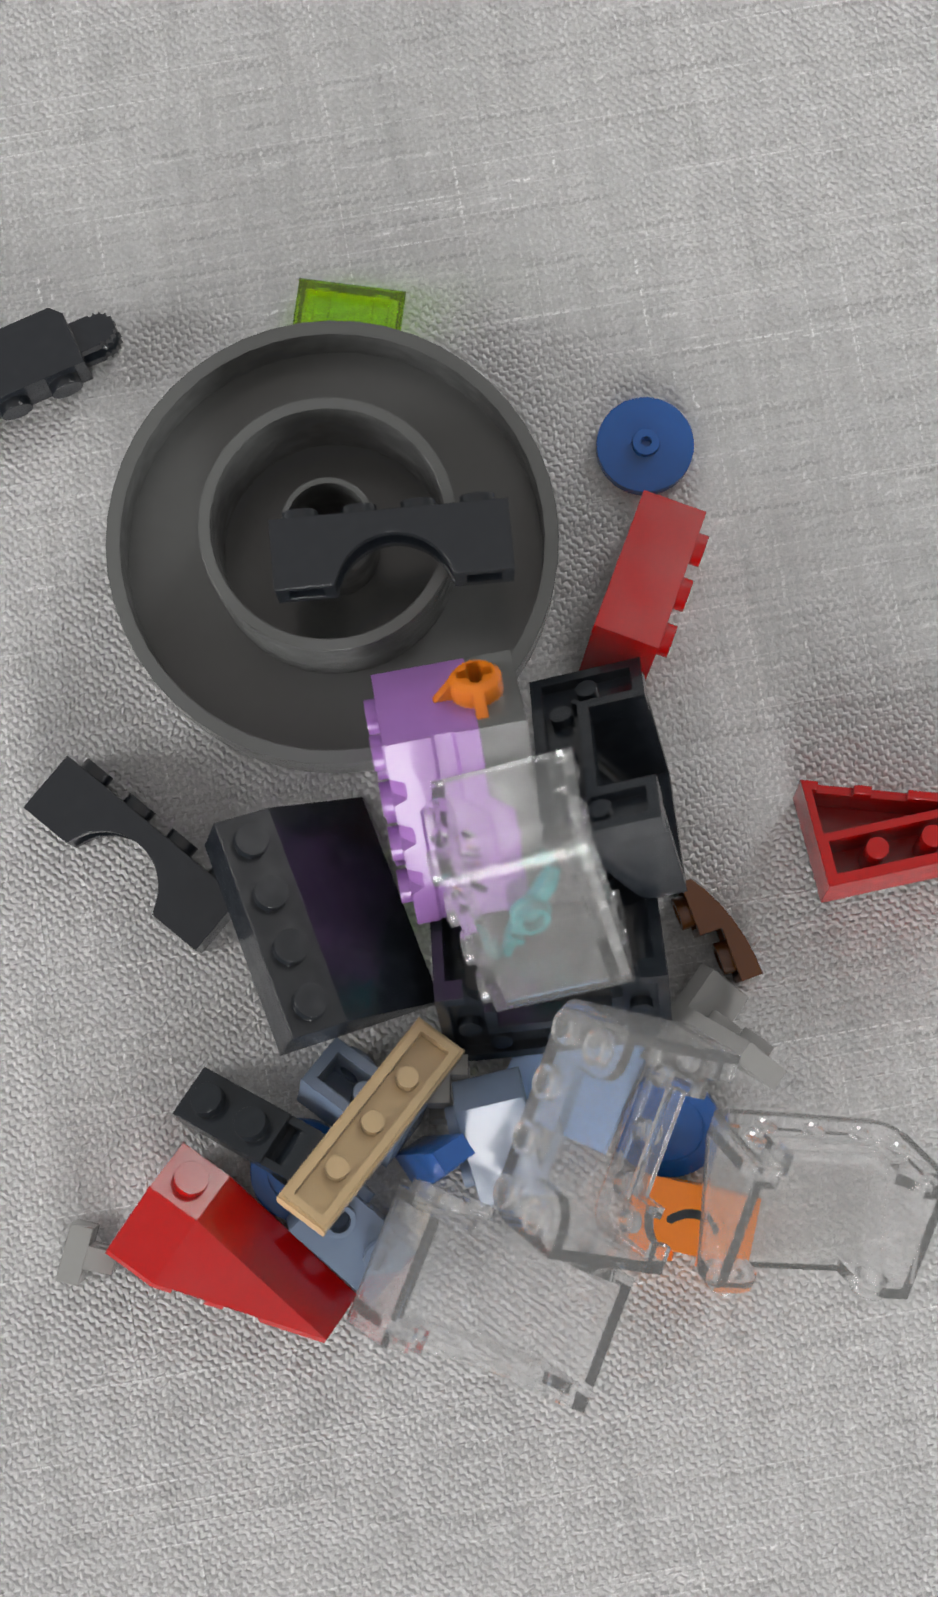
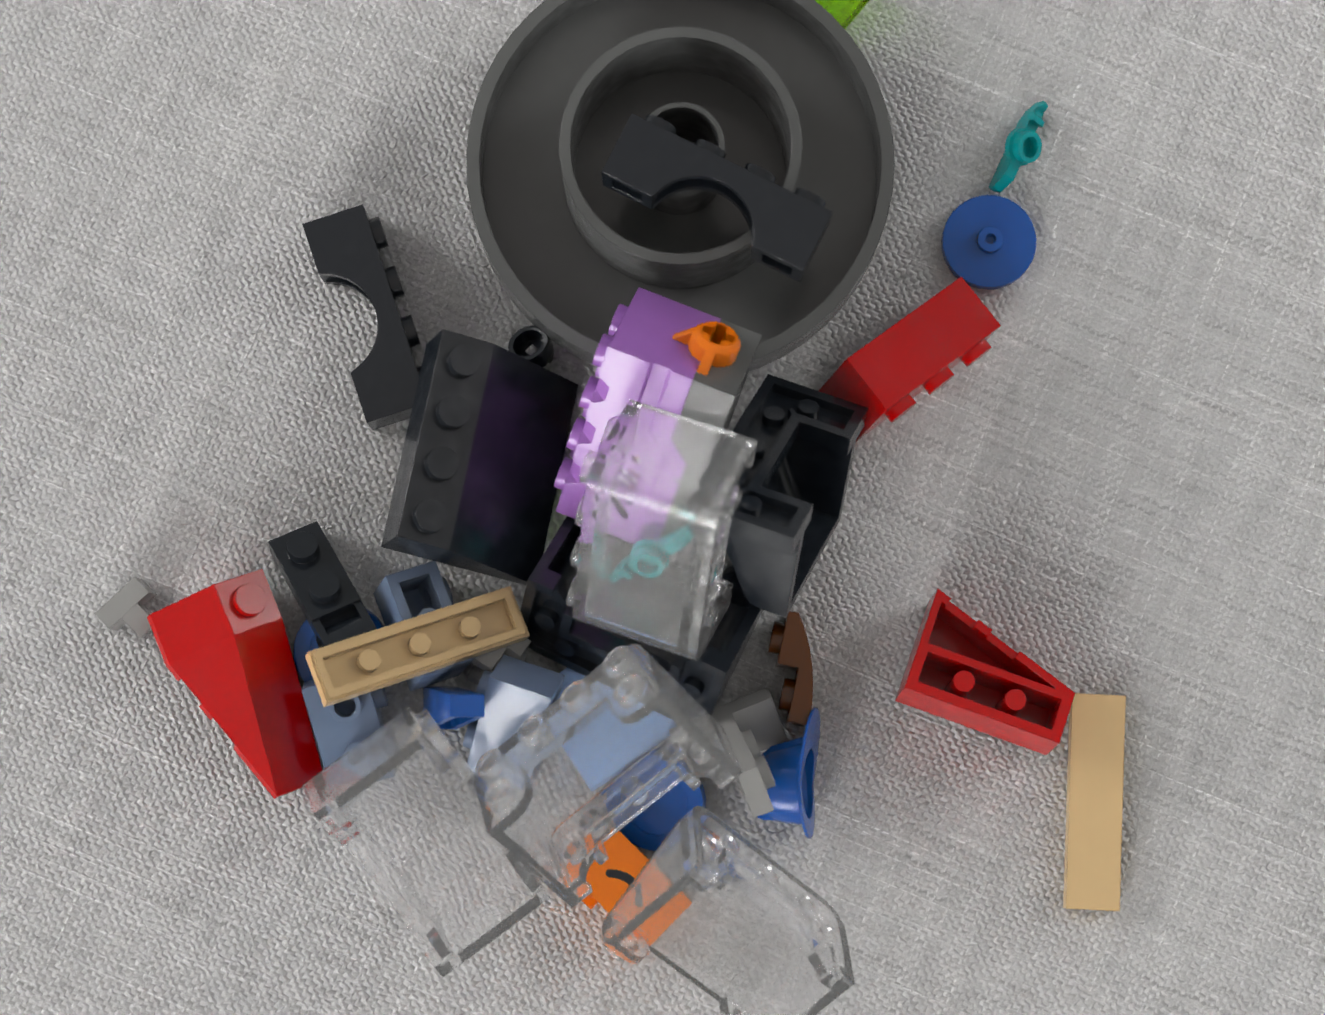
camera: 30 degrees right, 0 degrees up
(303, 780) = (540, 342): none -> black hinge
(621, 344) = (1021, 147): none -> teal piece
(772, 1020) = (794, 775): none -> blue piece

